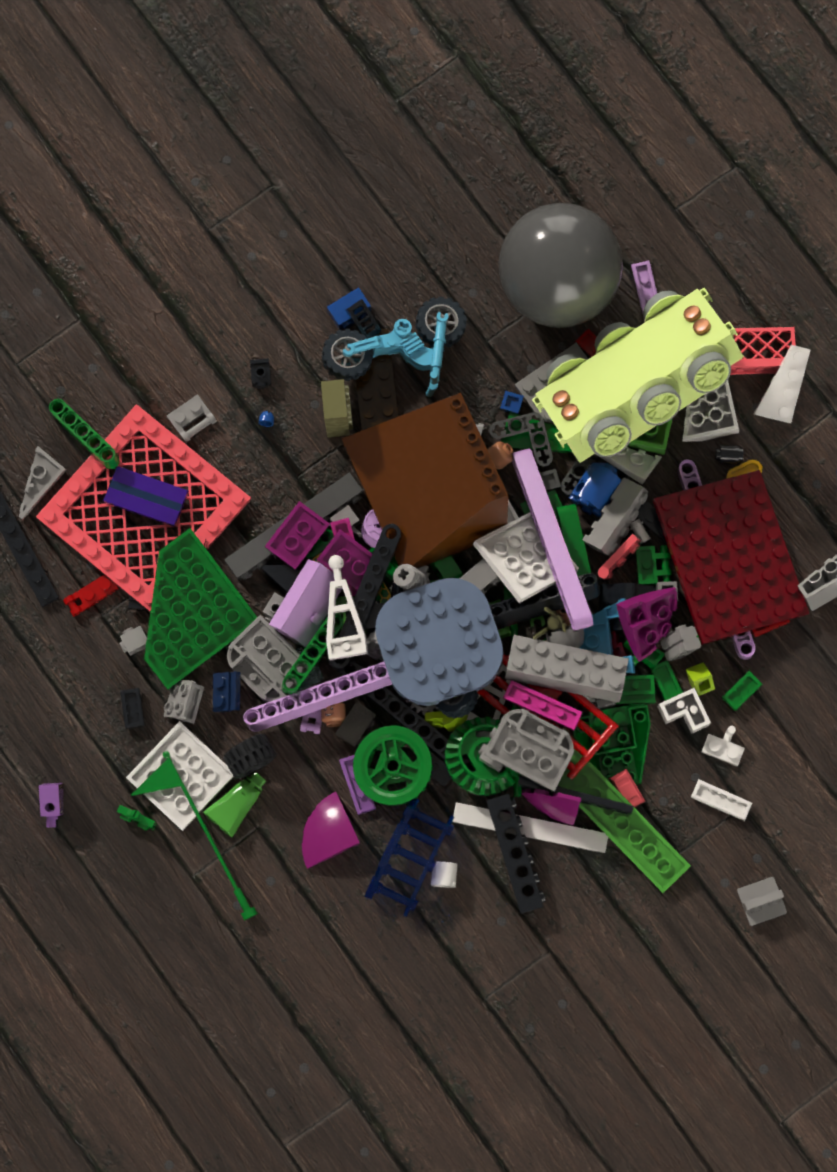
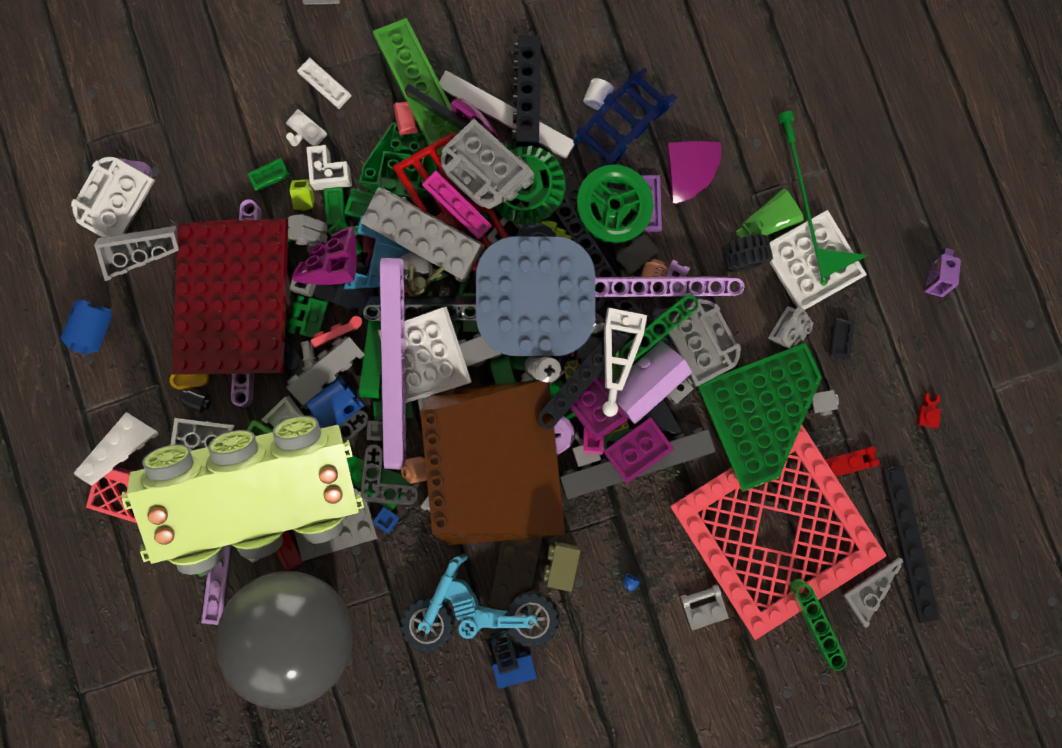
camera: 165 degrees left, 5 degrees up
(28, 663) = (929, 414): none -> red plate
(143, 822) = (866, 235): green plate -> none
(146, 496) = (773, 540): dark purple tile -> none
(226, 691) = (748, 325): dark blue plate -> none
(260, 365) = (617, 637): black brick -> none

